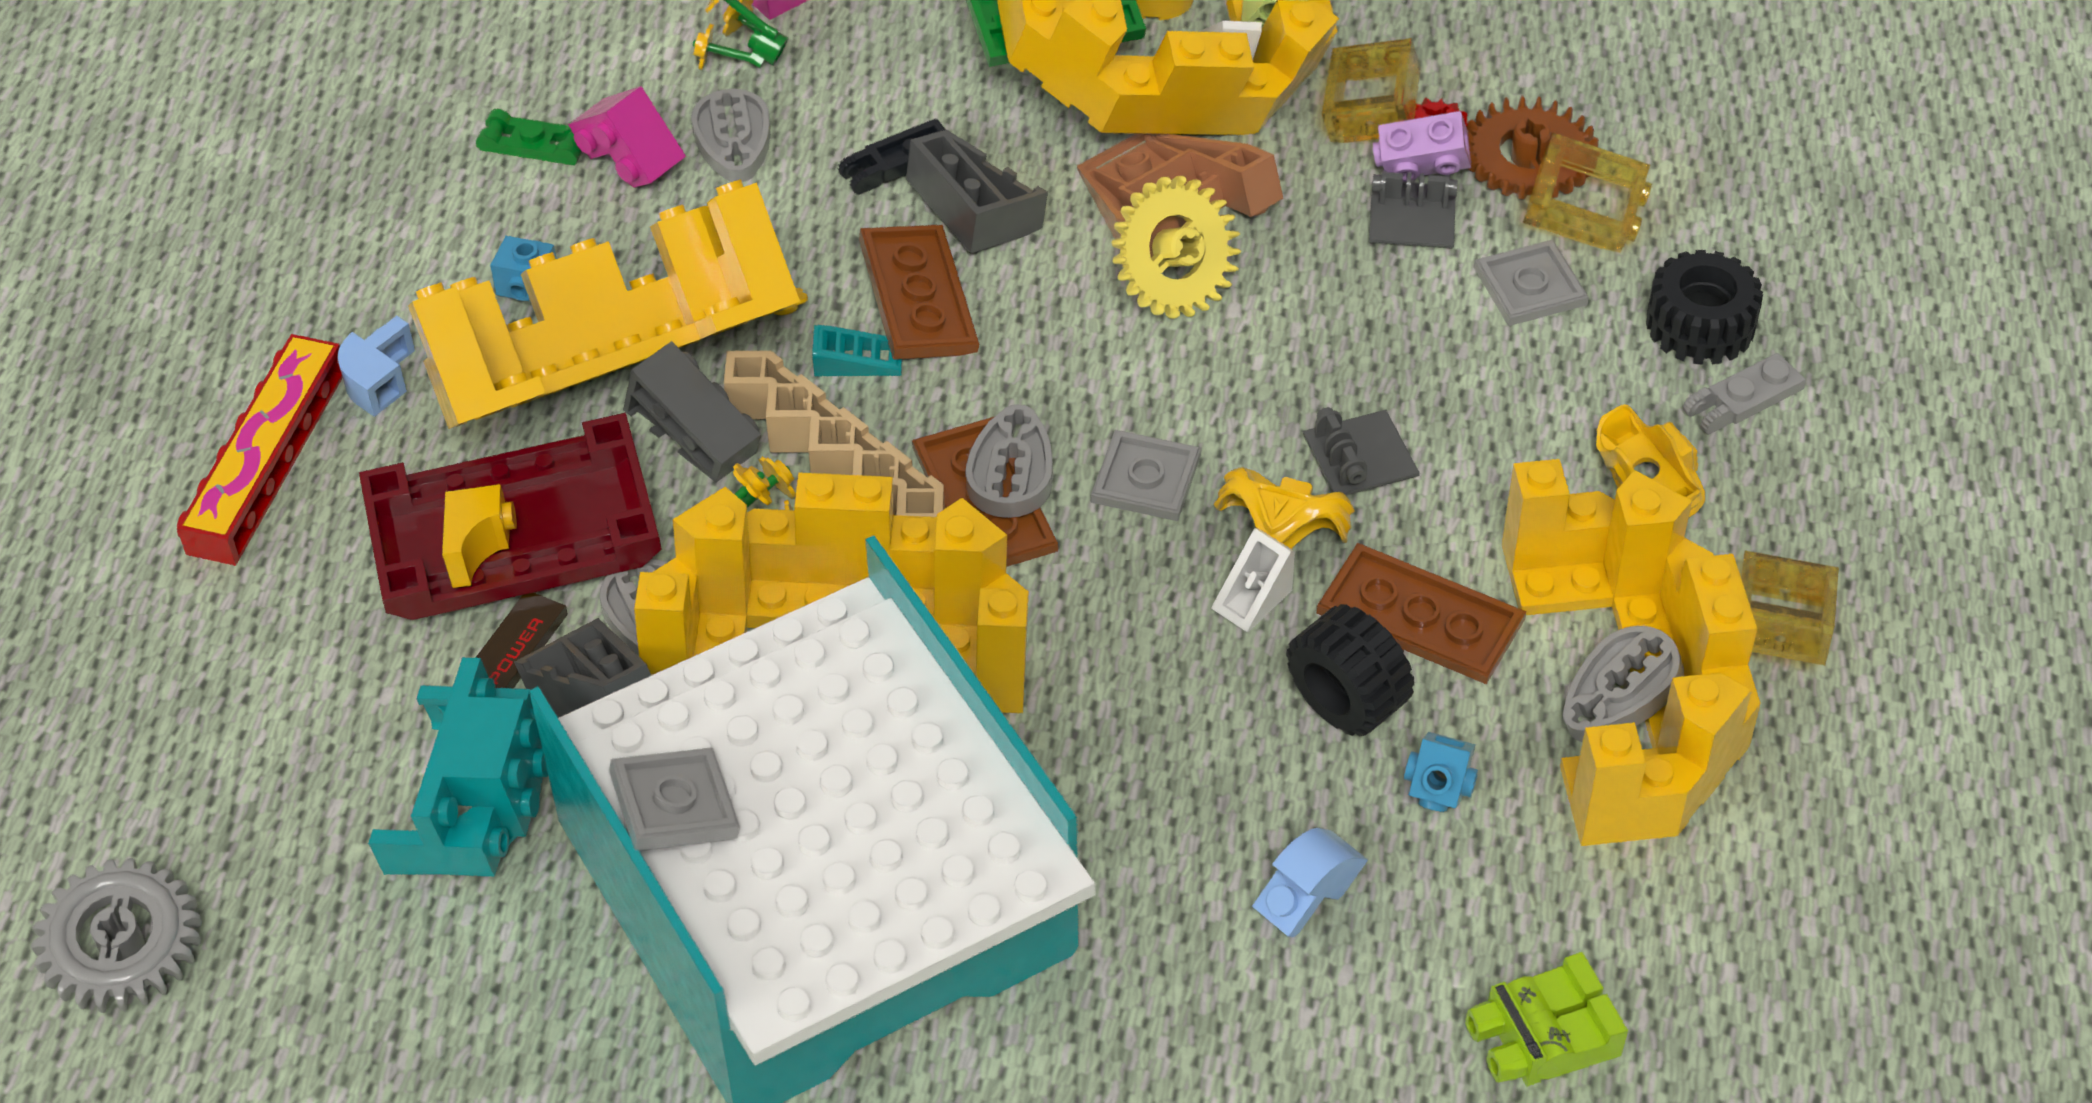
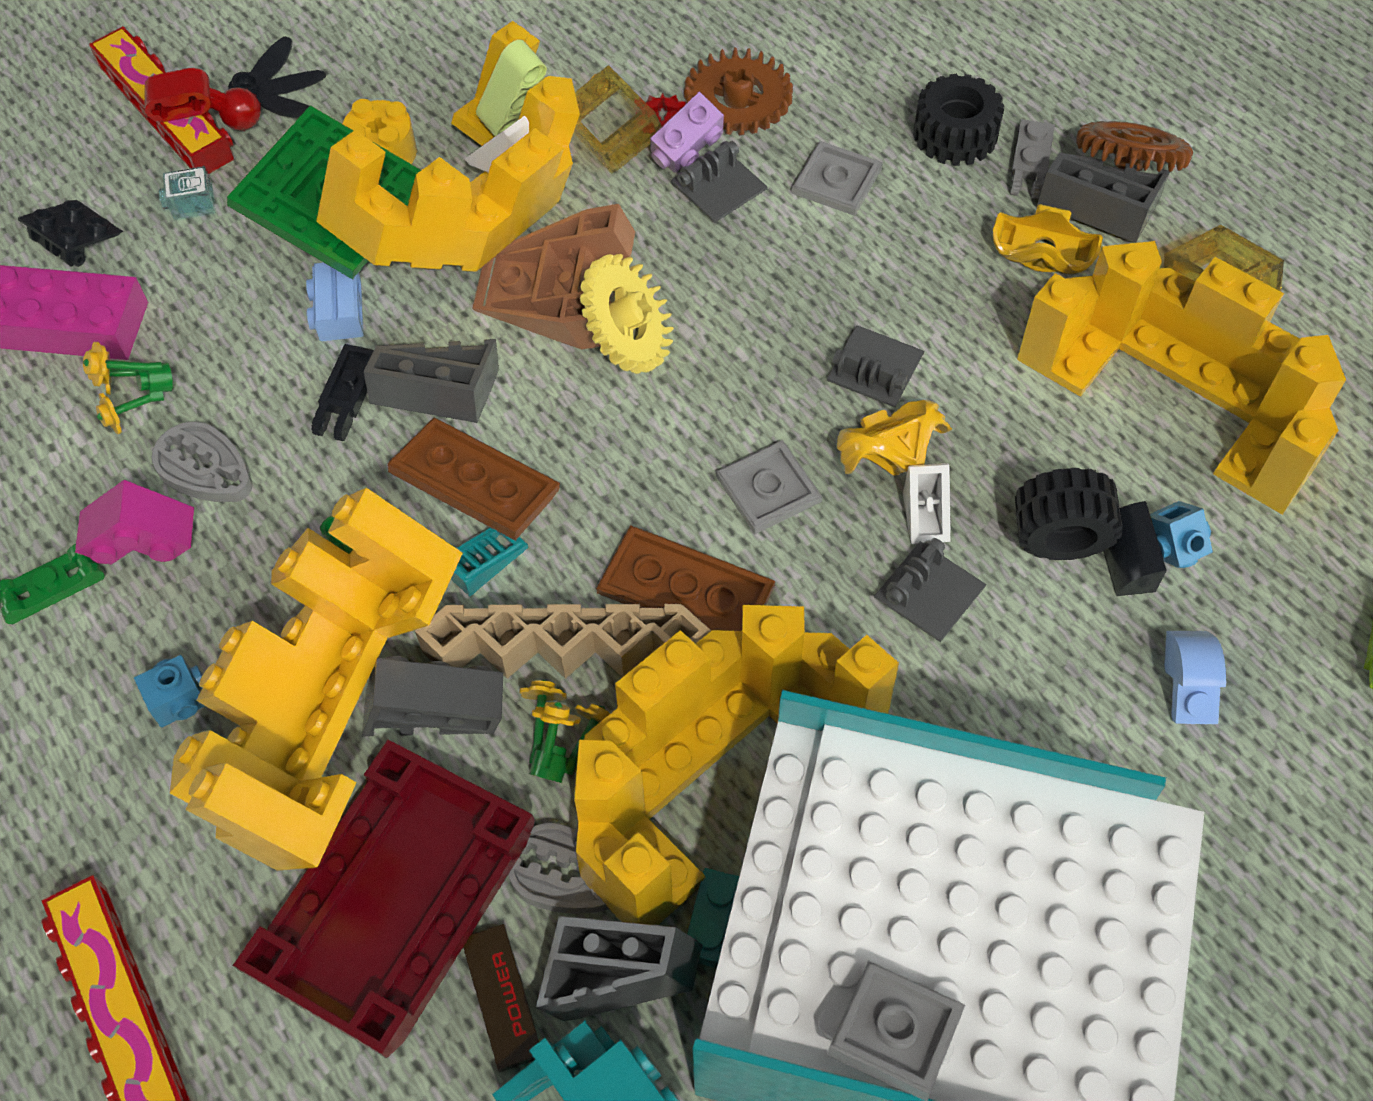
camera: 45 degrees left, 10 degrees up
(373, 367) = (134, 875): light blue brick -> none
(474, 528) = (386, 930): yellow arch -> none
(968, 85) = (336, 304): none -> light blue brick
(1032, 464) = (674, 566): light grey piece -> none
(1178, 649) = (930, 589): none -> dark grey hinge
(1385, 757) = (1136, 558): none -> black brick
(1427, 612) = (1030, 441): dark orange tile -> none
(1577, 222) = (793, 110): clear yellow window -> none
(1609, 664) = (1217, 386): light grey piece -> none
(1762, 469) = (1103, 195): none -> dark grey wedge
(1842, 443) = (1134, 145): none -> dark orange gear

